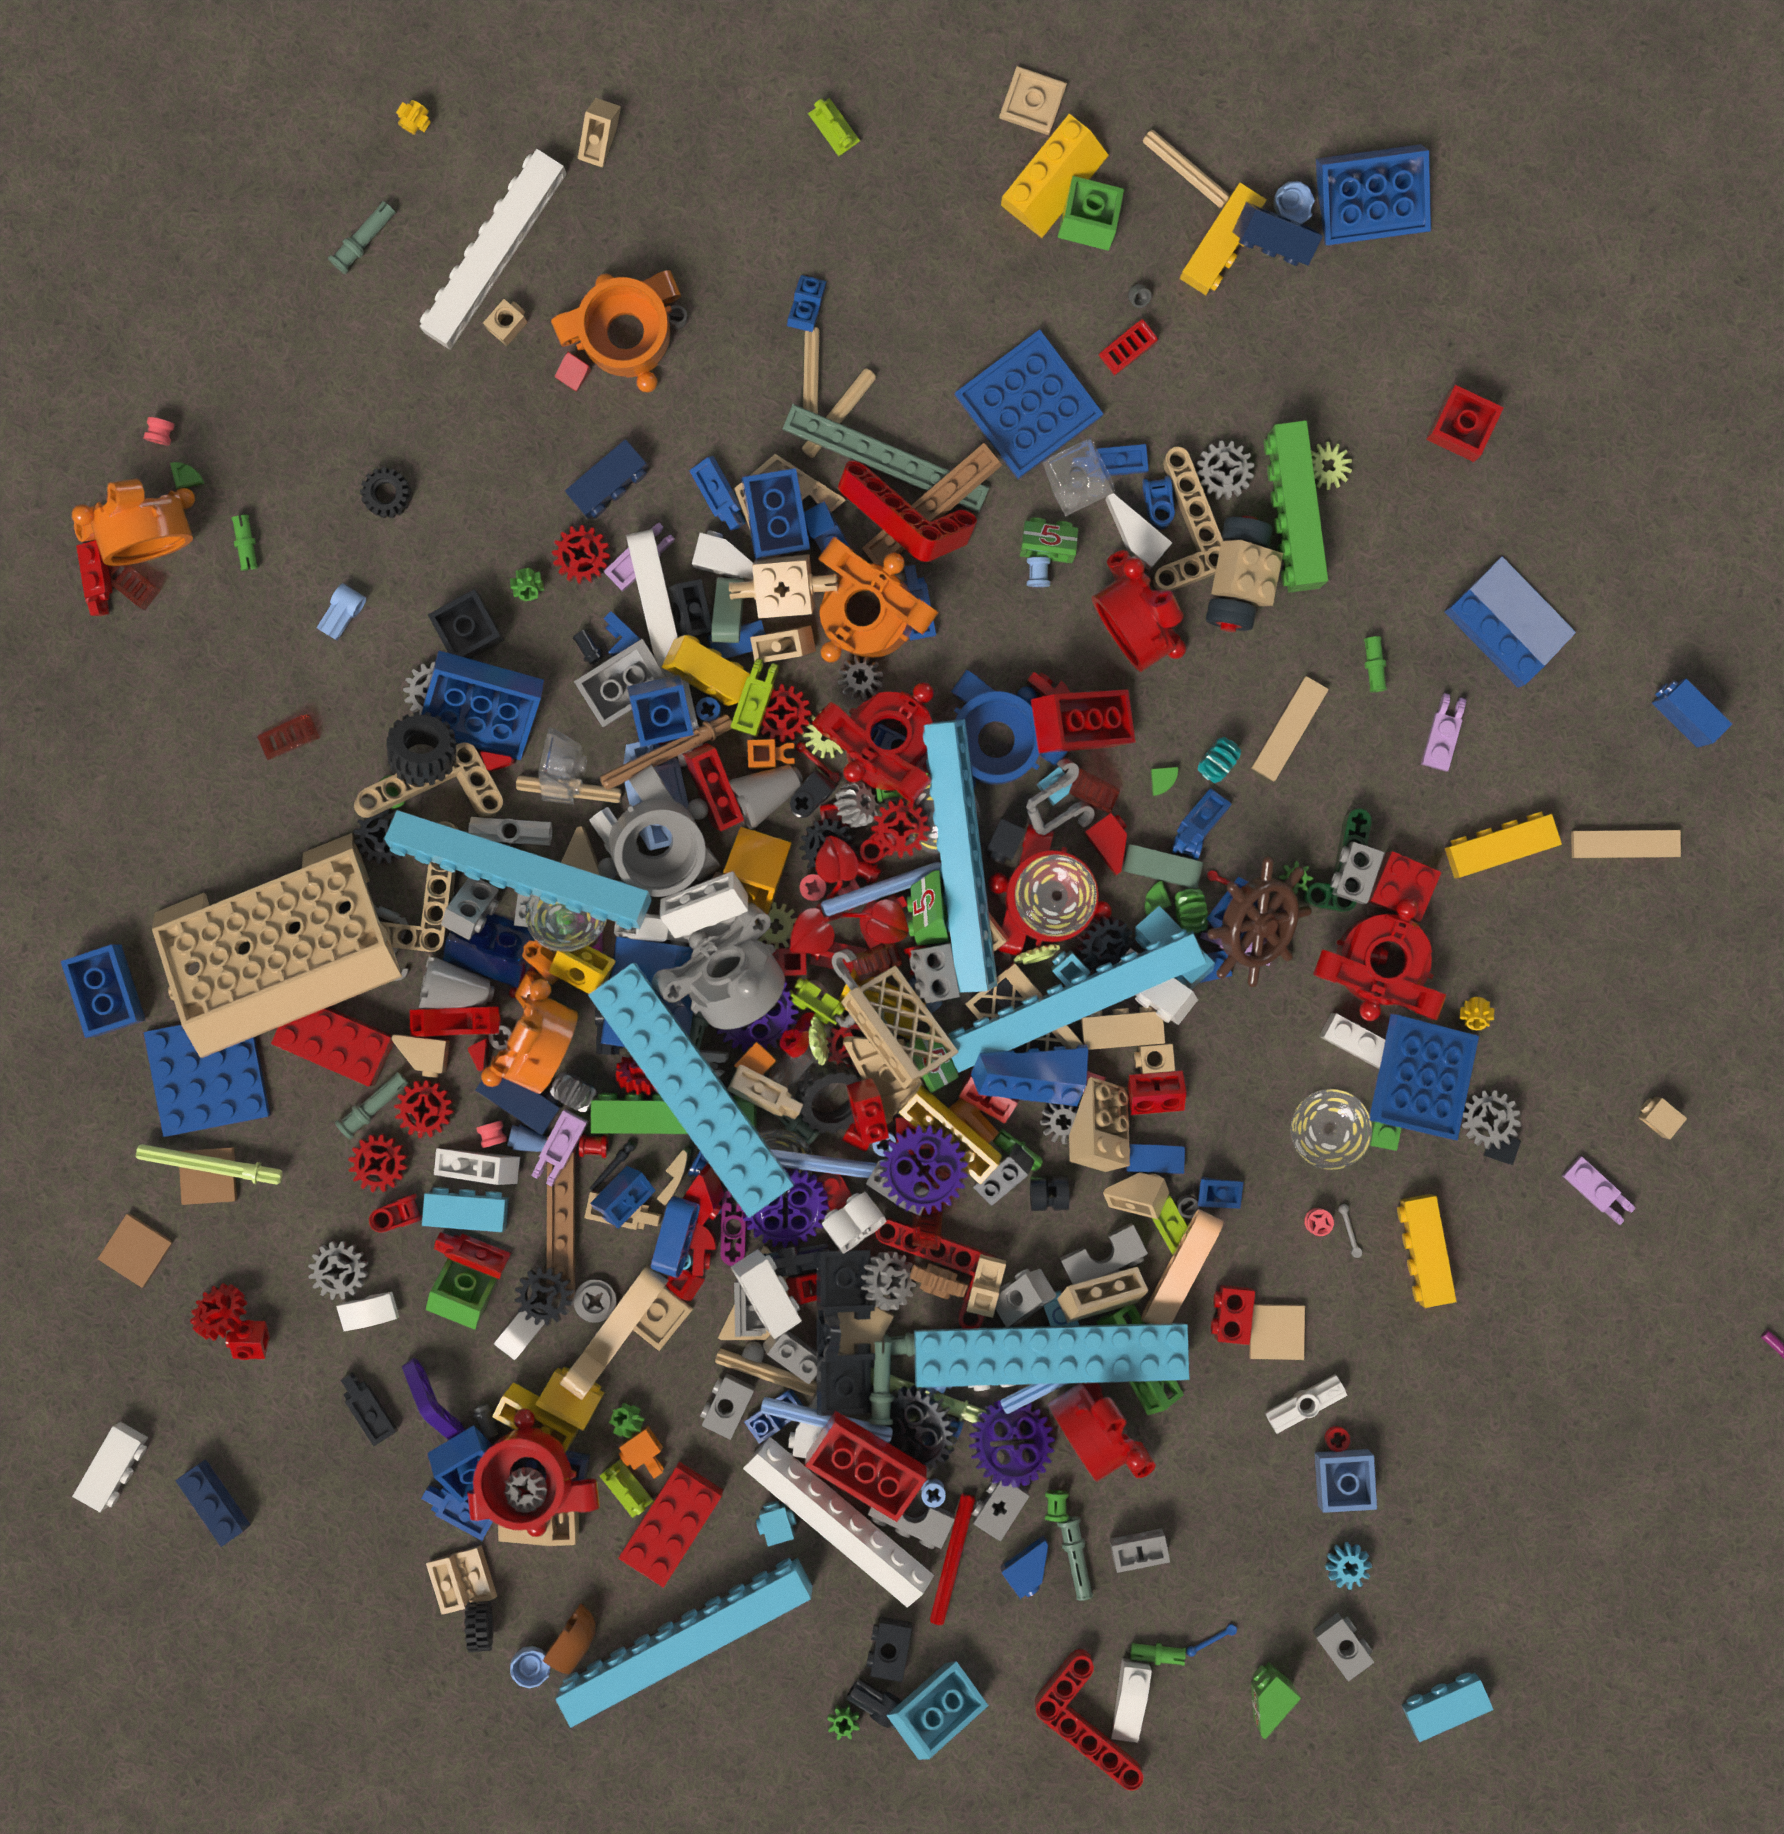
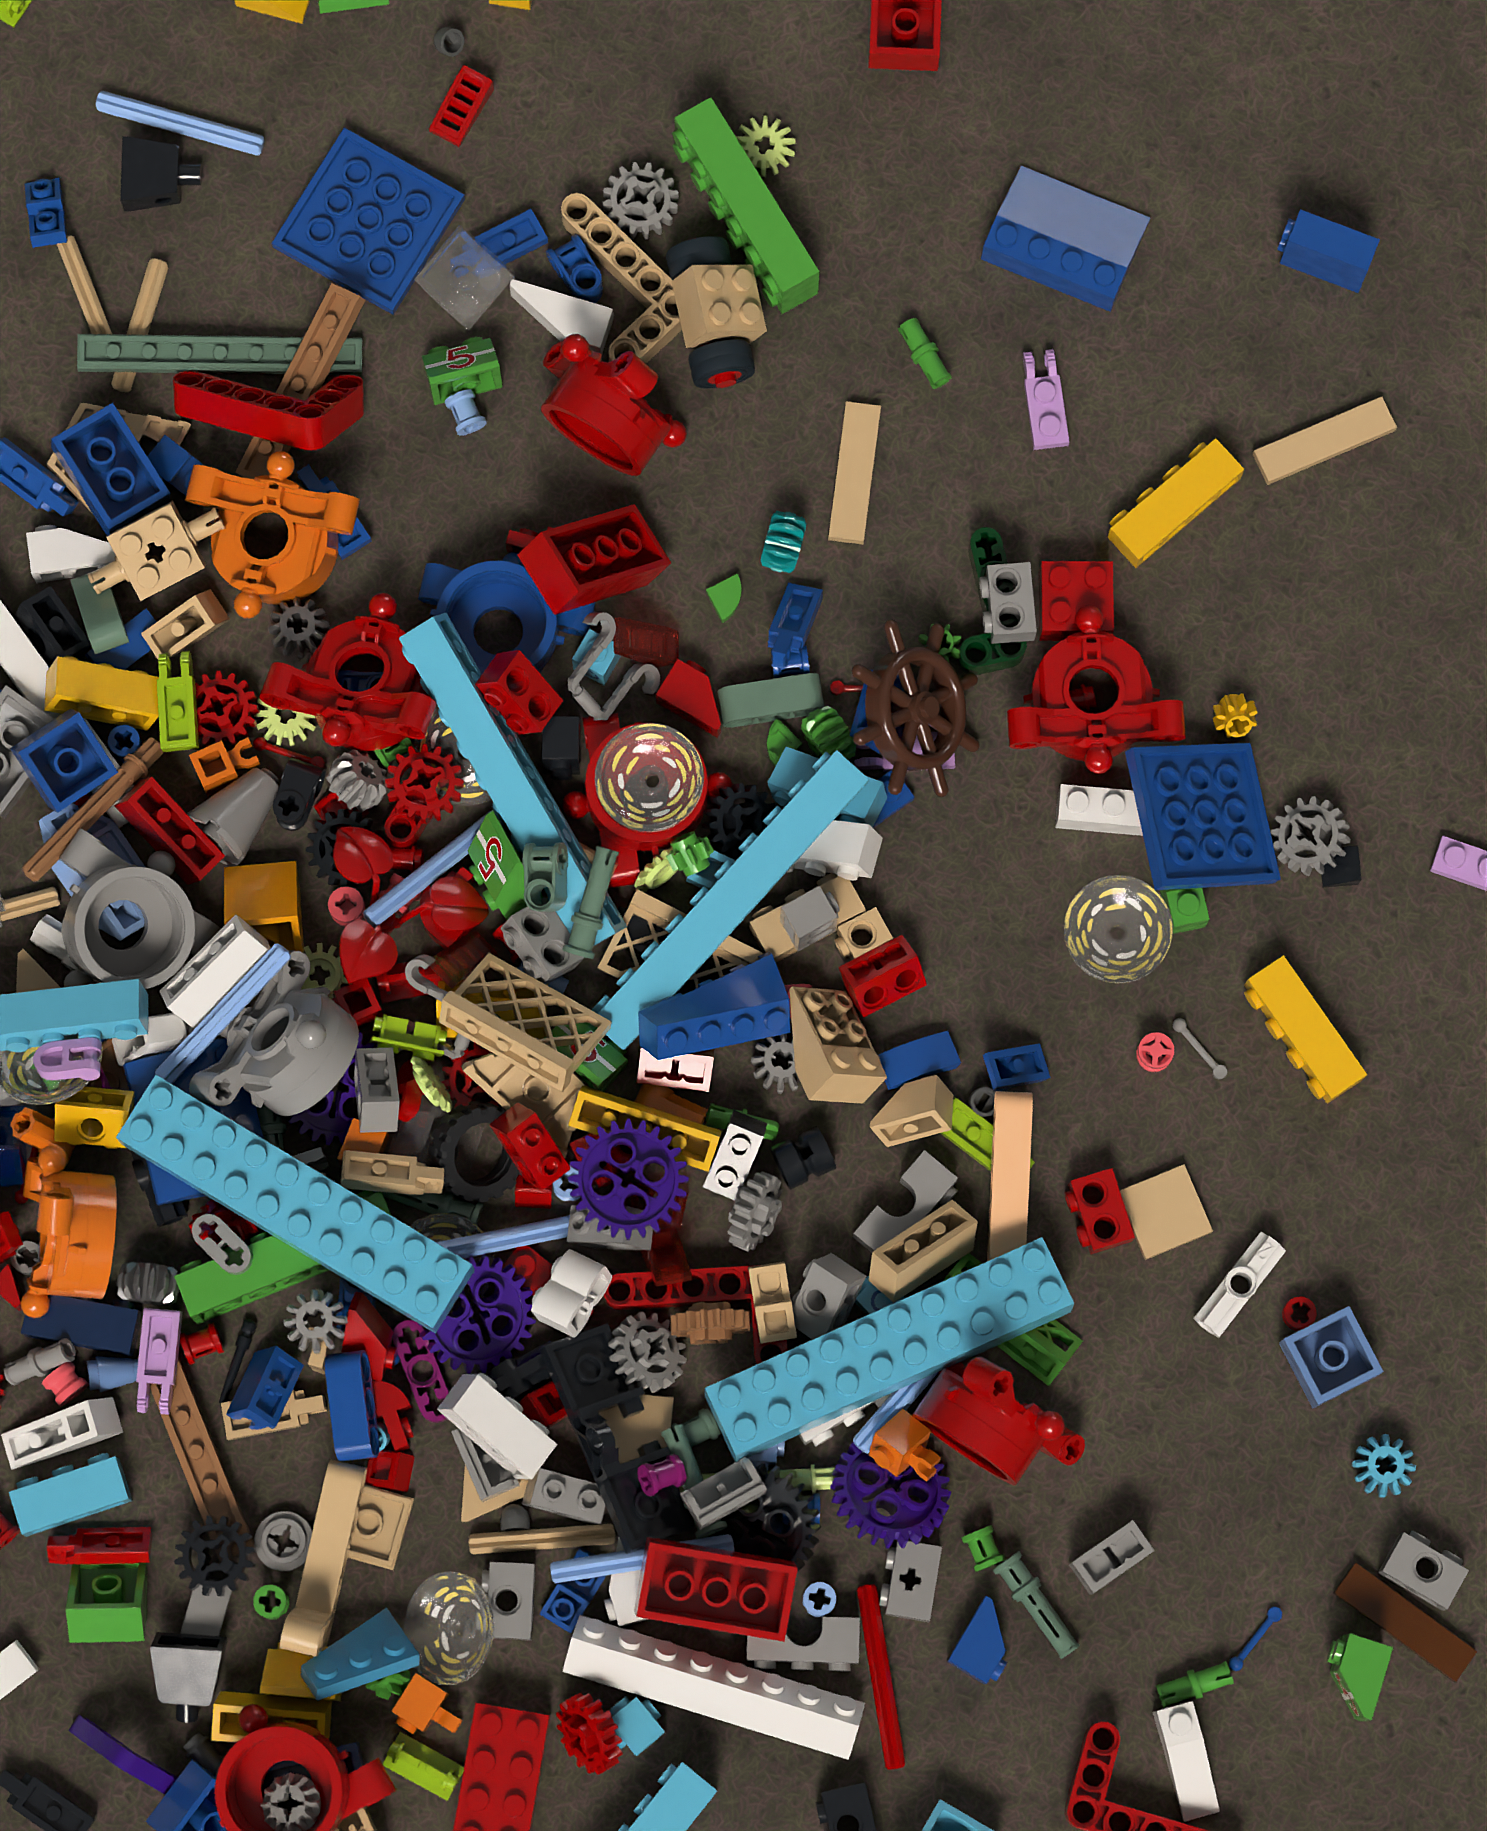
camera: 30 degrees left, 10 degrees down
(480, 1113) = (39, 1361): none -> light grey pin
(495, 1361) = (187, 1670): none -> torso
(561, 1339) = (265, 1592): none -> bright green bush
(569, 922) = (56, 1061): none -> lavender plate
(613, 1406) = (360, 1657): none -> dark azure wing
(625, 1096) = (215, 1251): none -> light grey beam
(670, 1407) = (450, 1627): none -> clear dish
(673, 1184) = (312, 1309): none -> light grey gear
(696, 936) = (223, 1013): none -> light blue axle
(743, 1518) = (589, 1733): none -> red gear
(779, 1032) = (376, 1090): none -> light grey brick
(863, 1372) = (662, 1474): none -> magenta bush
(893, 307) = (154, 174): none -> black torso
(898, 1405) = (723, 1493): none -> light grey hinge
(926, 276) = (180, 123): none -> light blue axle
(957, 928) = (545, 873): none -> sand green piece
(972, 975) = (587, 921): none -> sand green pin
(991, 798) = (519, 692): none -> red brick
(1001, 1218) = (755, 1211): none -> light grey gear
(1032, 1419) = (904, 1444): none -> orange brick
(1061, 958) = (690, 853): none -> bright green gear
(1124, 1038) = (810, 917): none -> light grey brick
(1315, 1672) = (1405, 1622): none -> reddish brown tile

